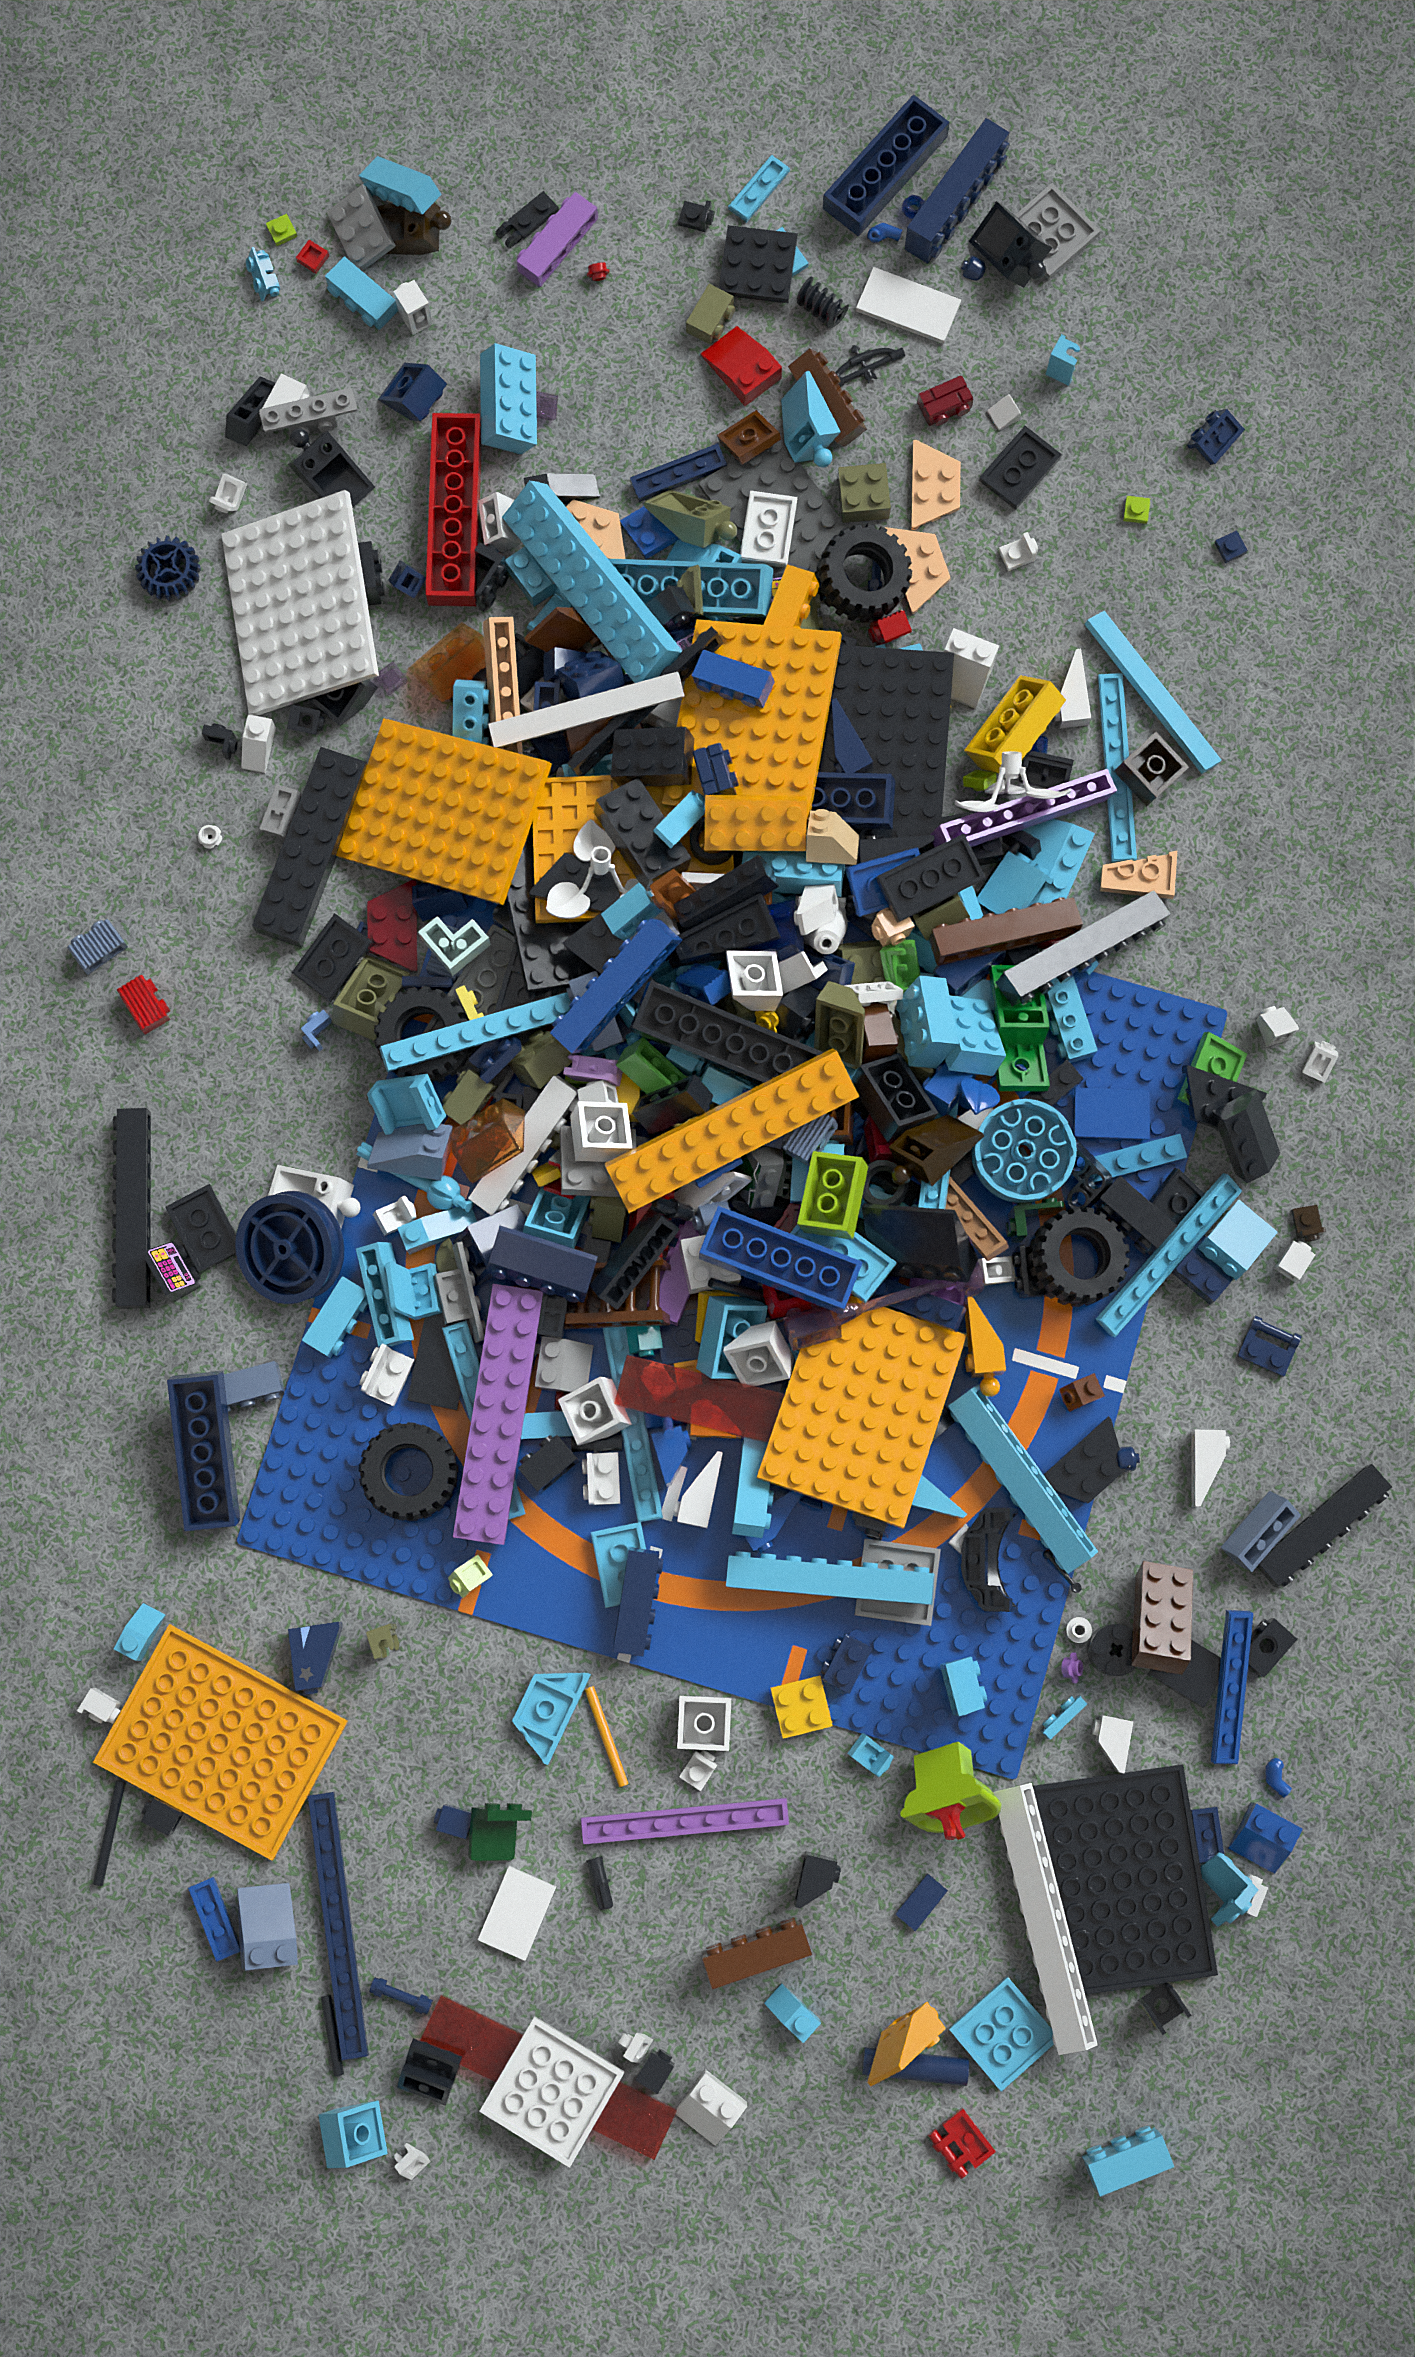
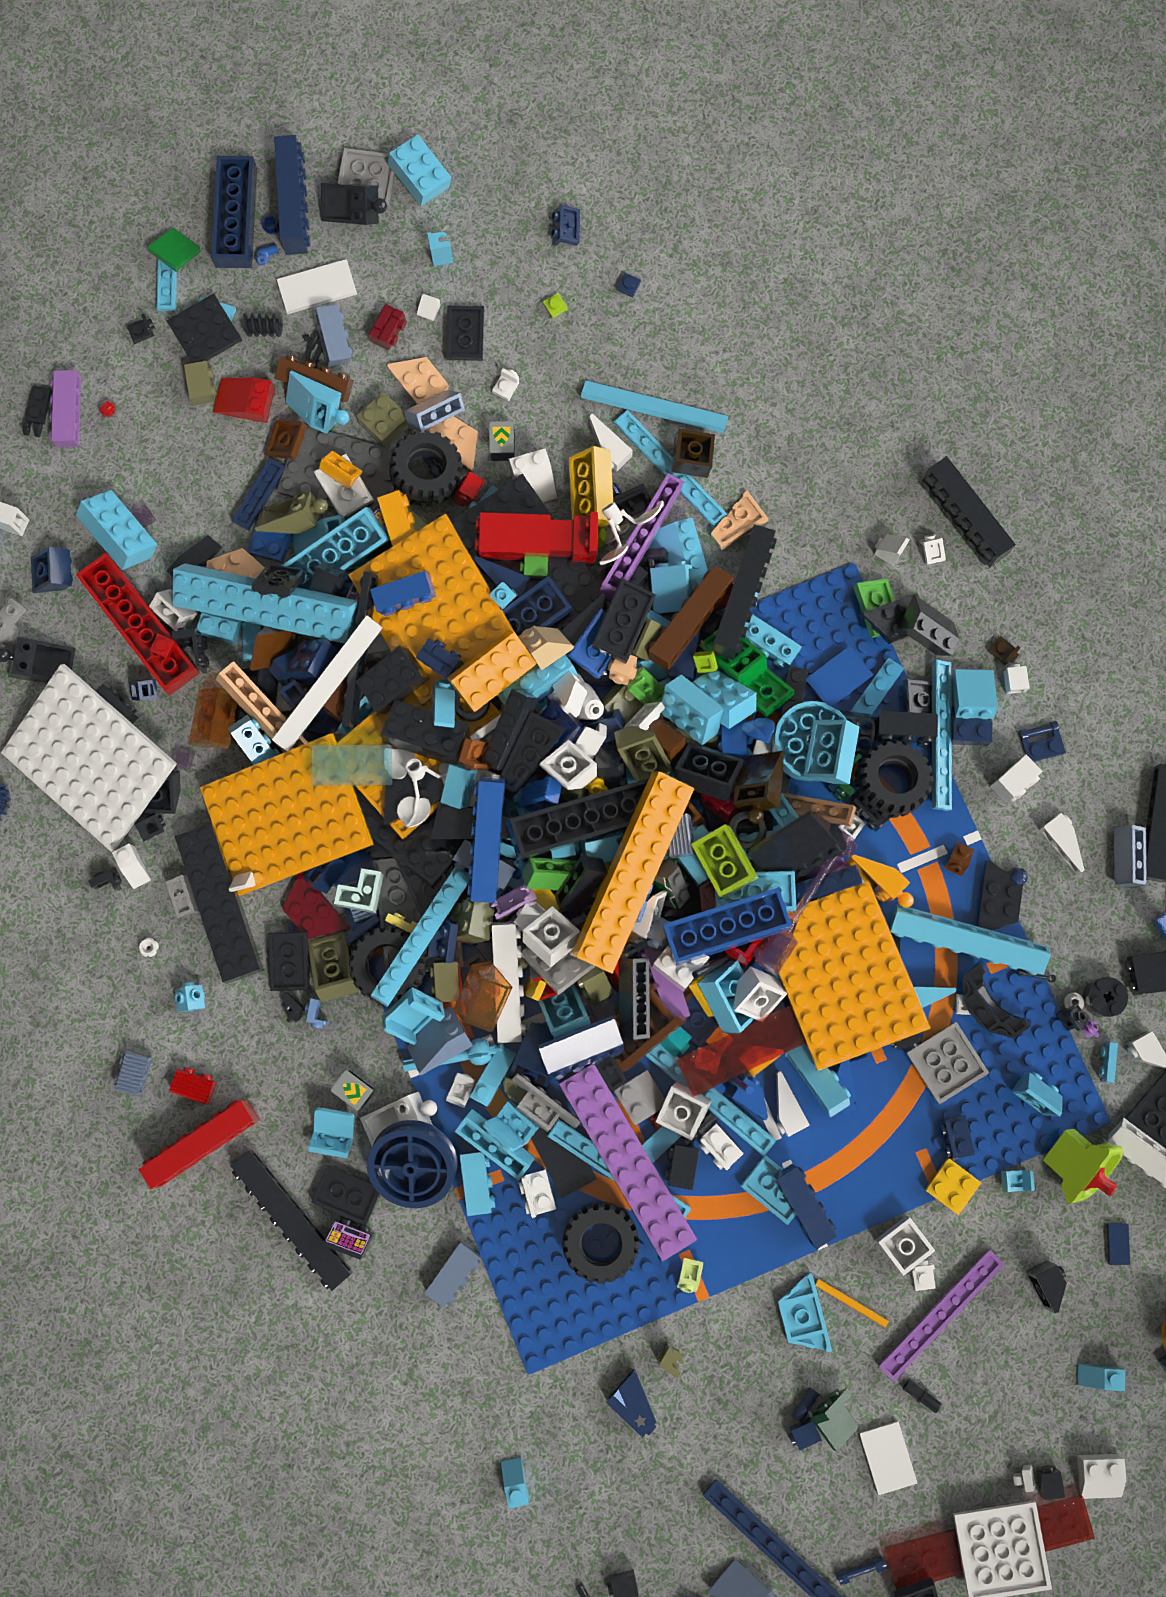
camera: 40 degrees left, 0 degrees up
(100, 1706) = (528, 1550): white brick -> none
(104, 1063) = (199, 1144): none -> red brick
(203, 1450) = (463, 1336): dark blue brick -> none
(209, 916) = (189, 997): none -> medium azure brick
(221, 1742) = (621, 1508): light orange plate -> none
(239, 1156) = (332, 1132): none -> medium azure bracket
(292, 1132) = (353, 1090): none -> piece
(300, 1000) = (290, 1004): none -> black bracket
(350, 843) = (242, 881): none -> white slope
(459, 550) = (162, 646): none -> red plate
(479, 1795) = (805, 1404): none -> dark blue hinge
(543, 808) = (351, 765): none -> clear light blue plate
(621, 570) = (278, 580): none -> black plate
(692, 585) = (327, 554): olive tile -> none
(756, 1953) = (1052, 1359): reddish brown brick -> none
(777, 509) = (340, 469): none -> light orange slope
(794, 158) = (174, 249): none -> green tile
(829, 1579) = (909, 1095): medium azure brick -> none
(830, 758) = (503, 595): none -> medium azure bracket
(882, 367) = (333, 335): none -> sand blue brick
(888, 756) = (534, 567): none -> bright green brick
(913, 727) = (522, 535): none -> red brick
(921, 522) = (434, 410): none -> brick
(966, 605) = (502, 440): none -> piece
(973, 268) = (338, 235): dark blue piece -> none
(982, 986) = (705, 661): none -> lime plate
(1032, 1173) = (831, 751): none -> medium azure slope
(1063, 1642) = (1072, 1018): none -> black bracket
(1109, 263) = (419, 170): none -> medium azure brick
(1162, 1617) = (1120, 955): brick -> none
(1207, 1359) = (1016, 778): none -> white brick
(1387, 1051) = (967, 512): none -> black brick

